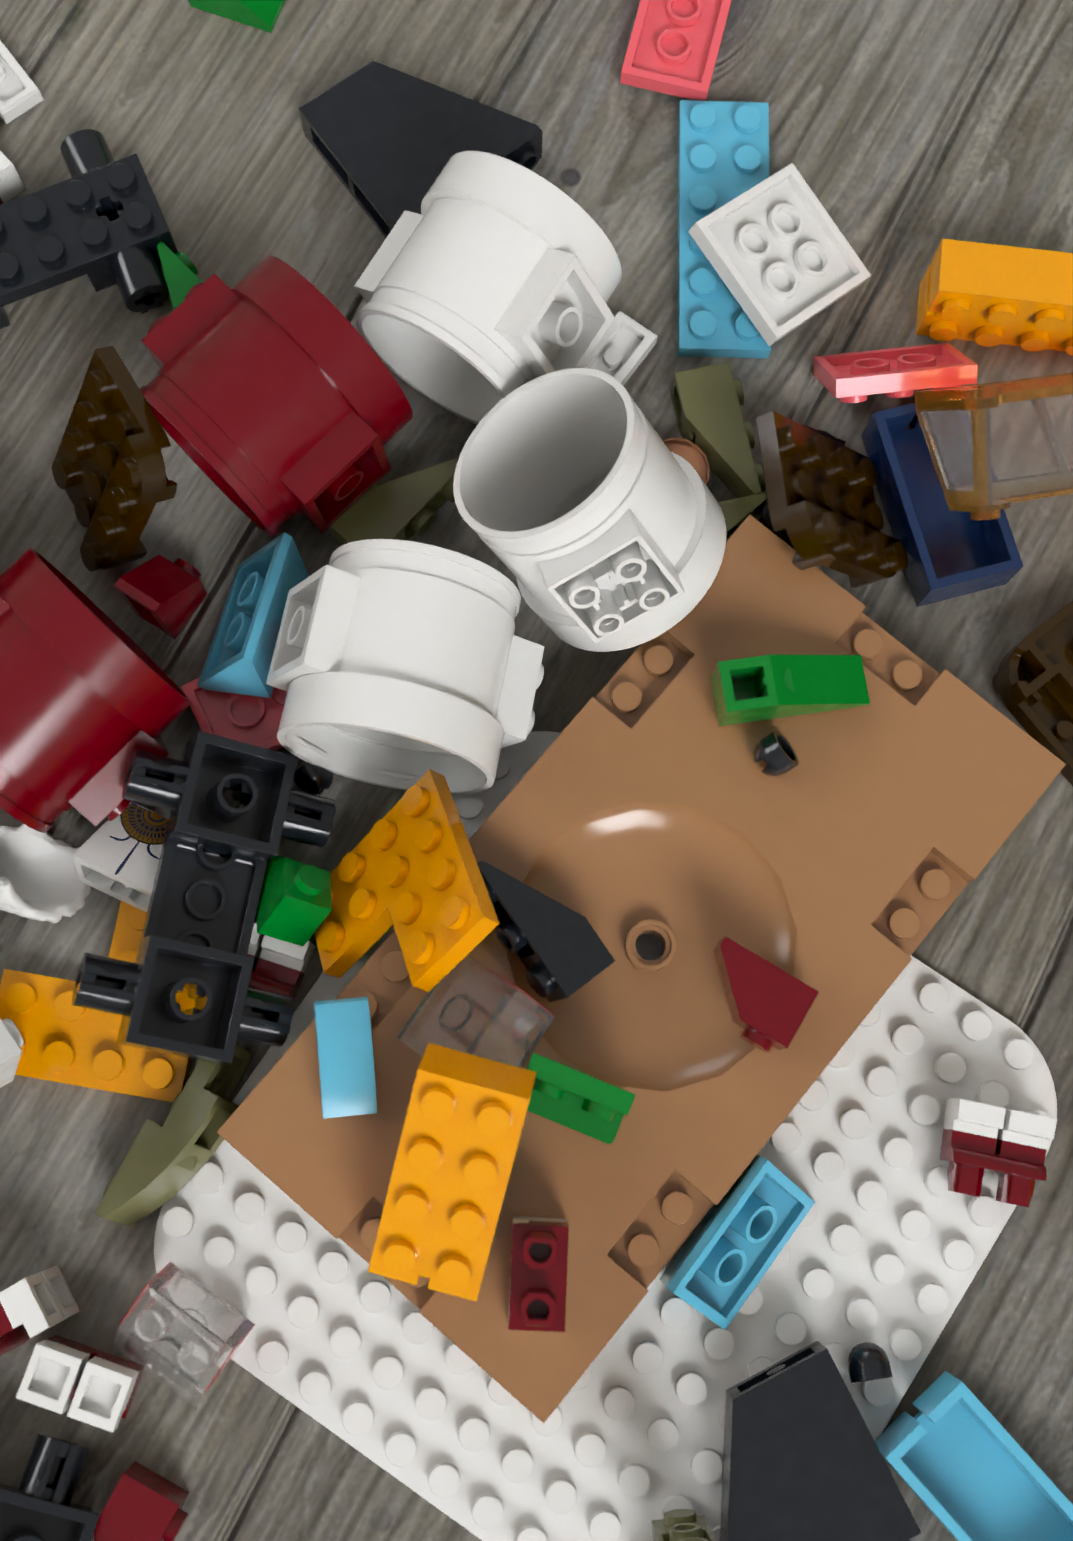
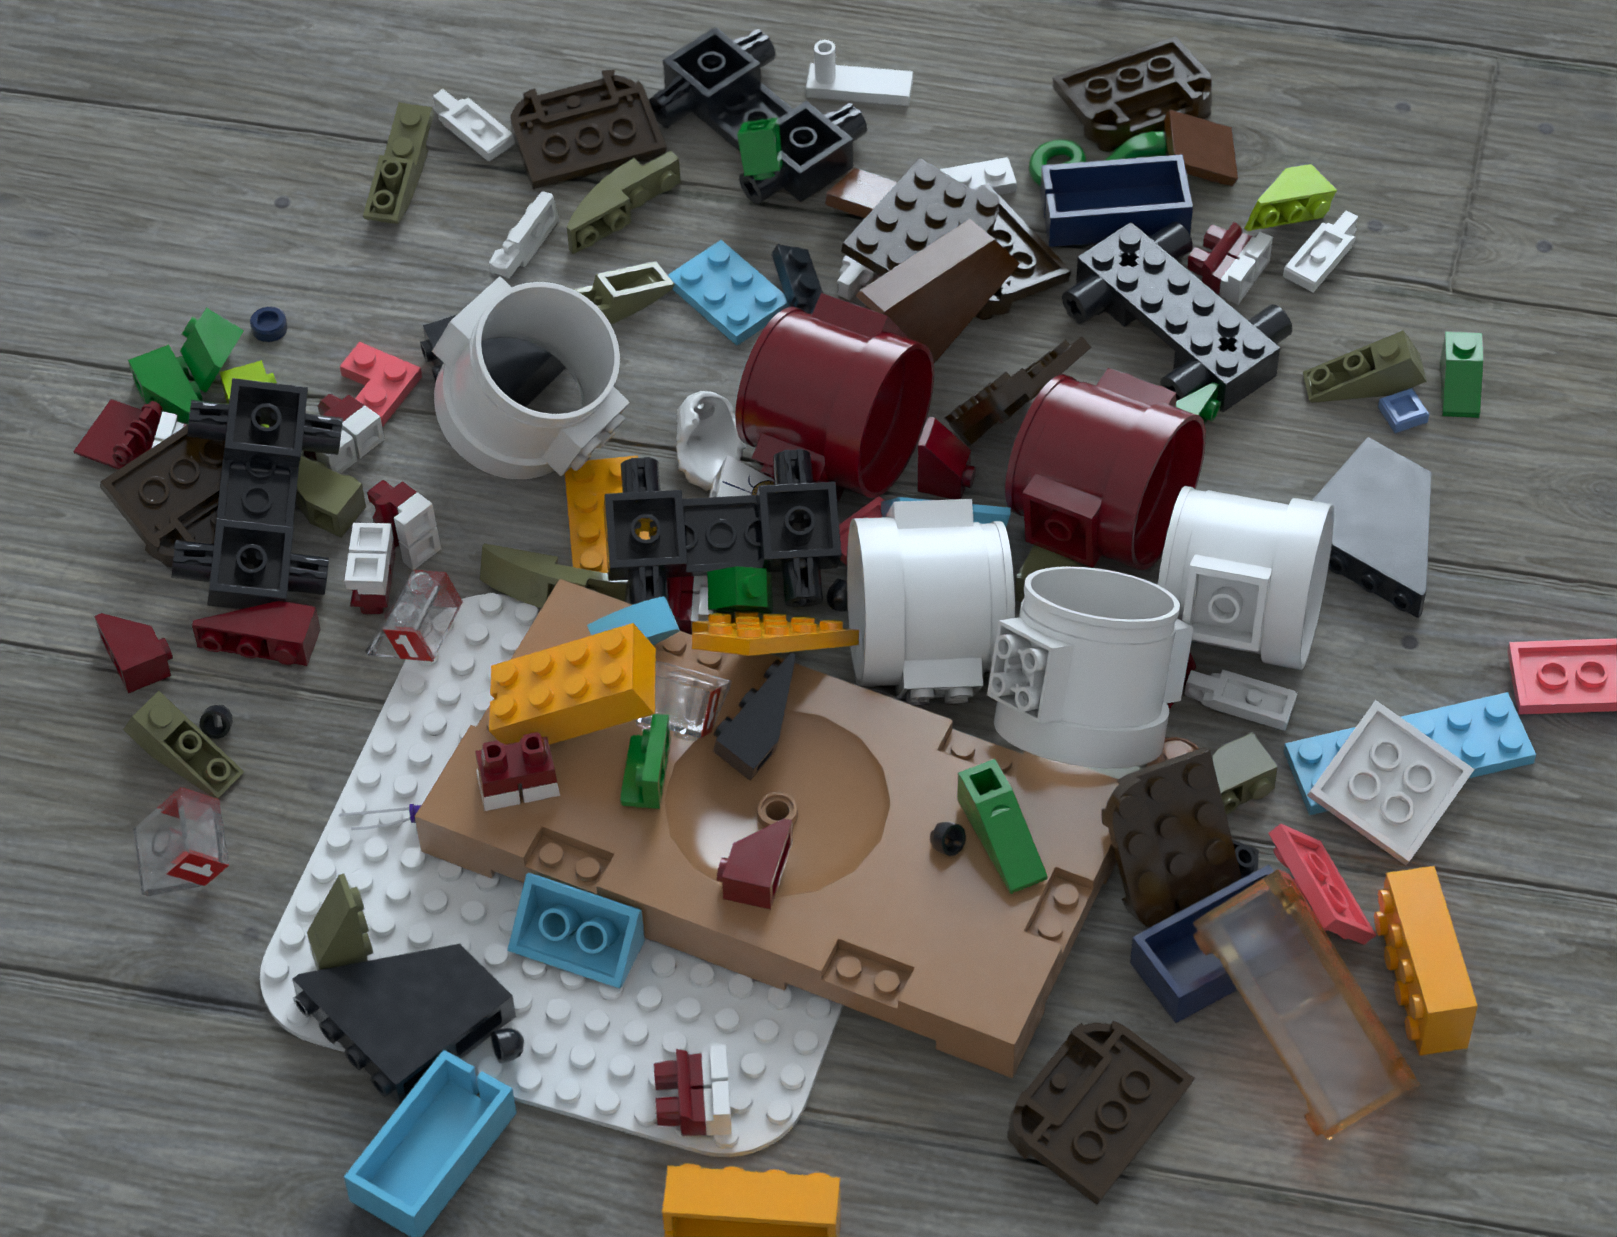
camera: 80 degrees right, 25 degrees down
(190, 82) = (1367, 372): none -> olive slope
(252, 67) = (1403, 410): none -> medium blue tile
(488, 1404) = (413, 809): none -> flat silver piece

